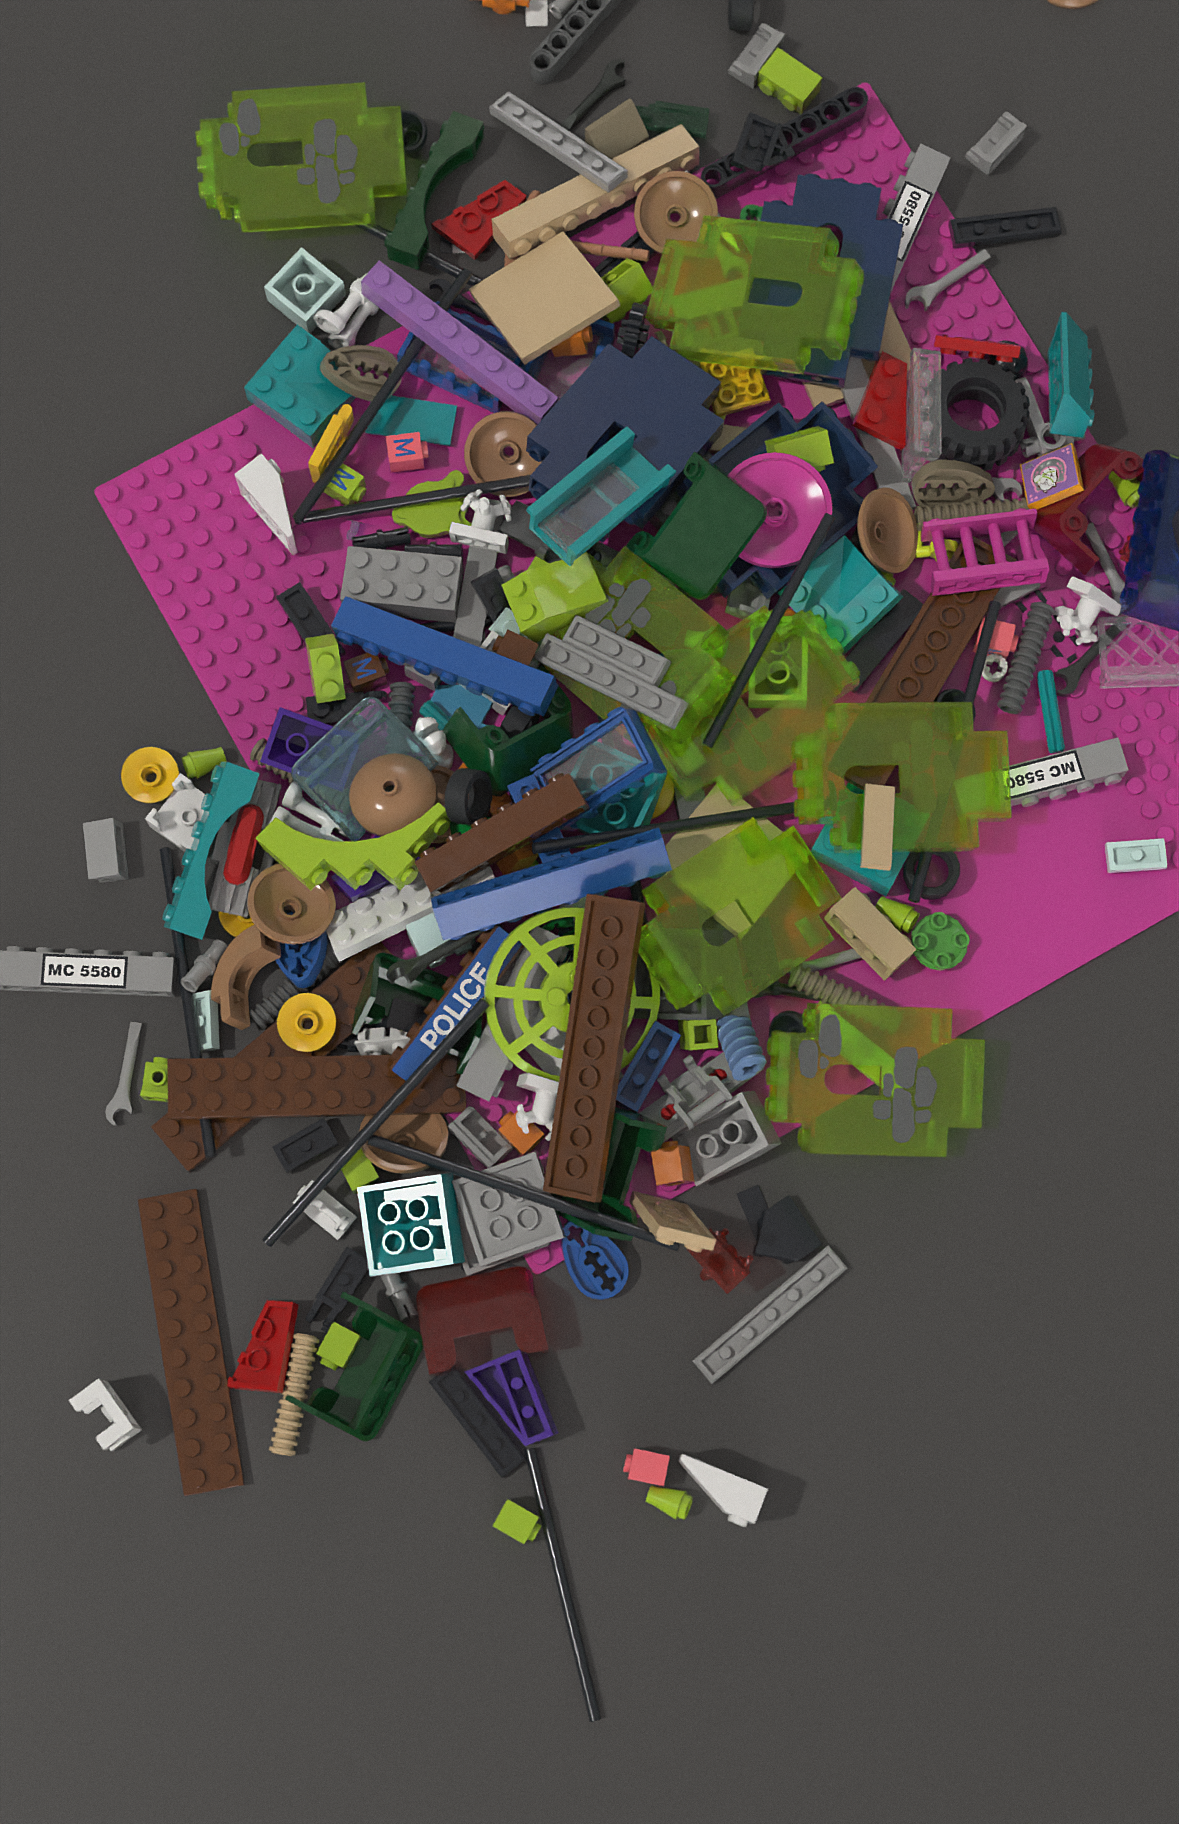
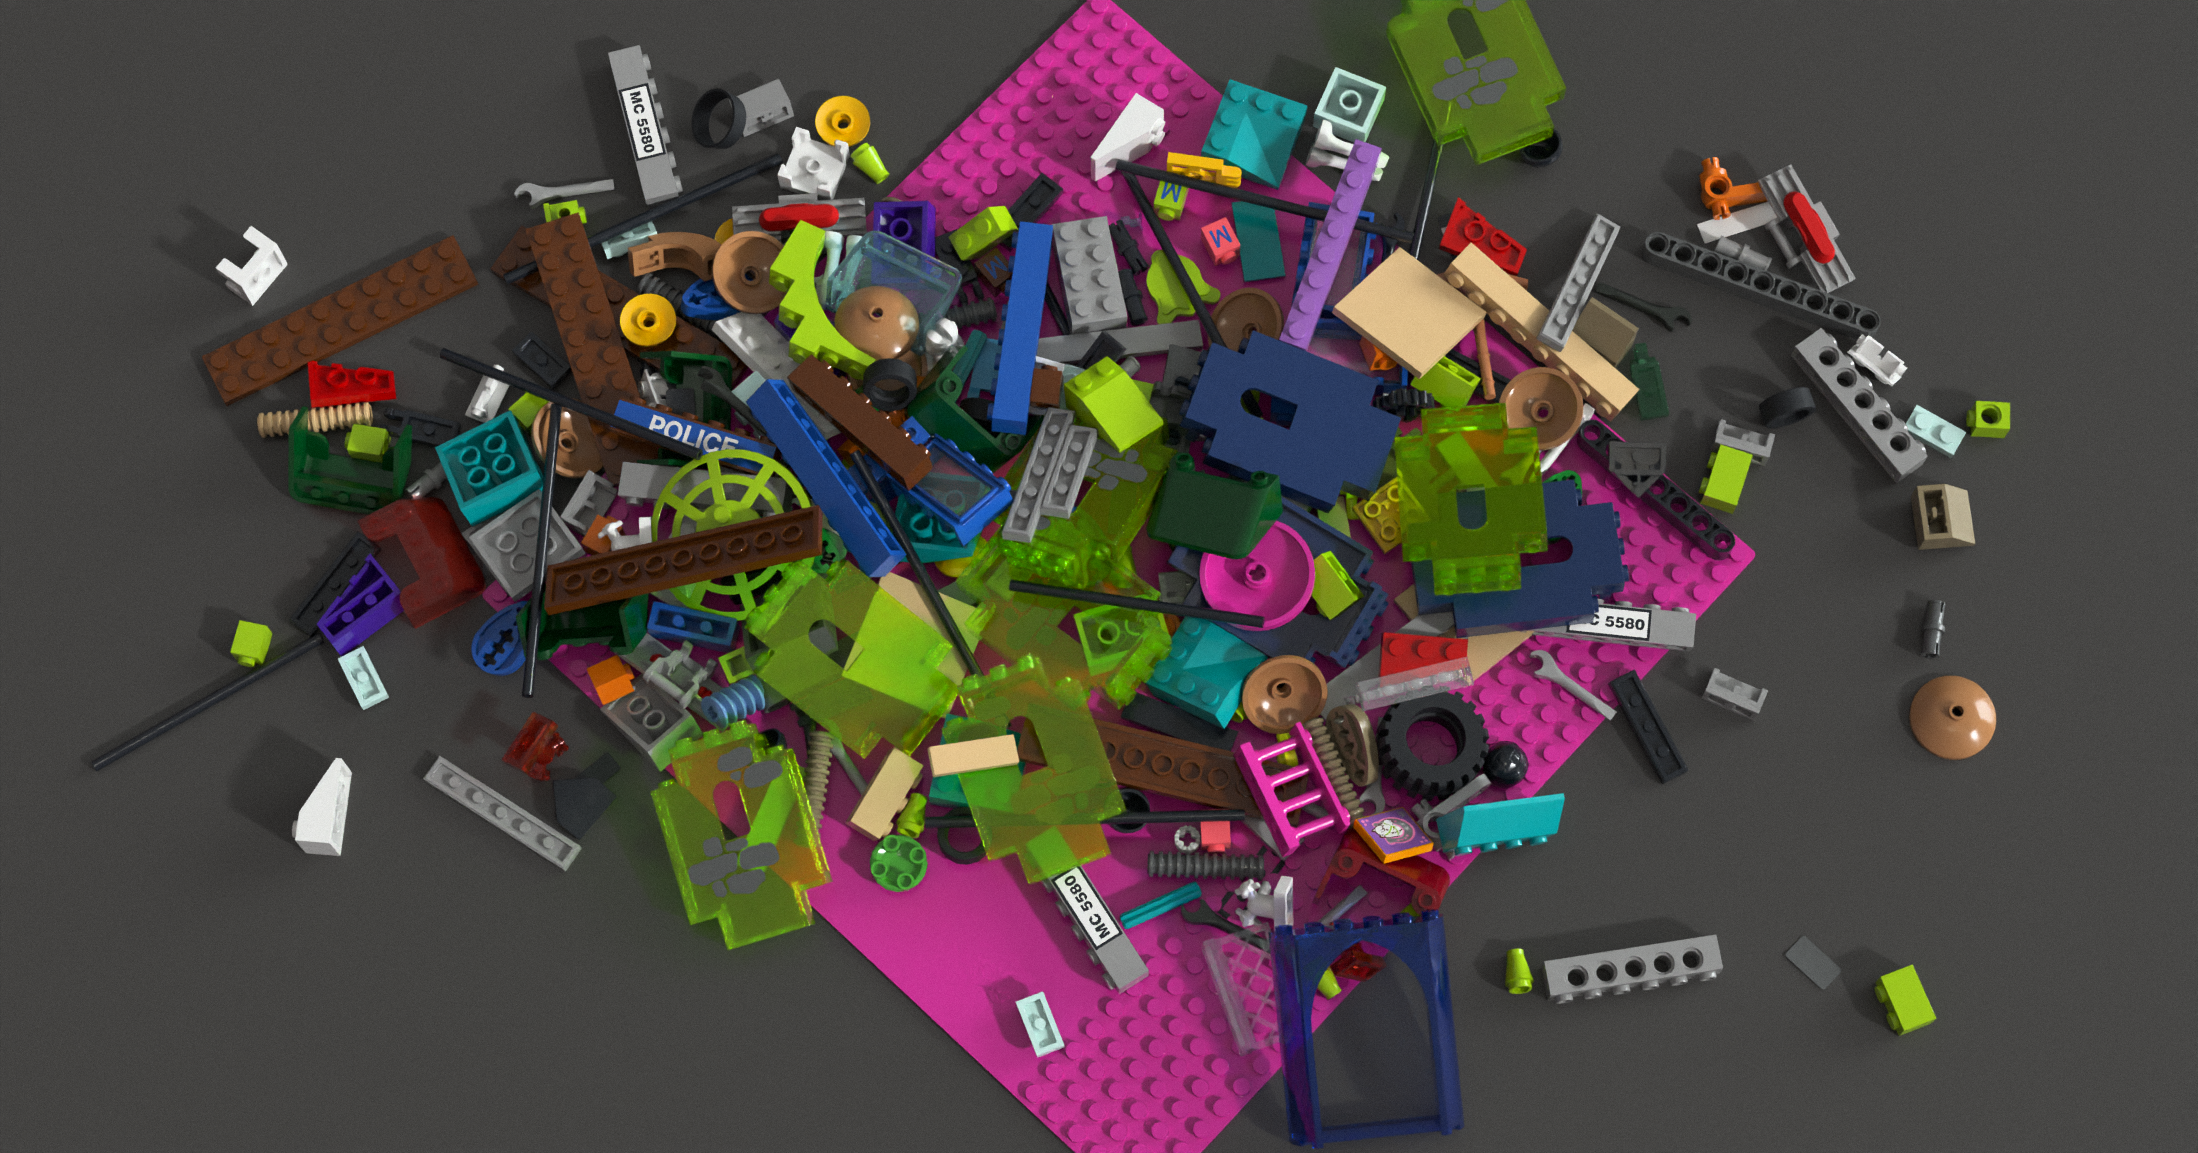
camera: 75 degrees right, 5 degrees down
(101, 916) = (702, 114): none -> black tyre
(190, 907) = (727, 190): teal arch -> none
(204, 966) = (677, 221): light grey pin -> none
(349, 378) = (1291, 163): dark tan piece -> none
(457, 145) = (1545, 195): dark green arch -> none
(481, 532) = (1170, 327): white piece -> none
(588, 1416) = (363, 677): none -> light aqua plate
(596, 497) = (1208, 403): teal piece -> none
(646, 1467) = (330, 742): coral brick -> none
(670, 1501) = (304, 776): lime cone -> none
(672, 1222) = (550, 685): tan plate -> none
(977, 349) = (1496, 699): red wing -> none

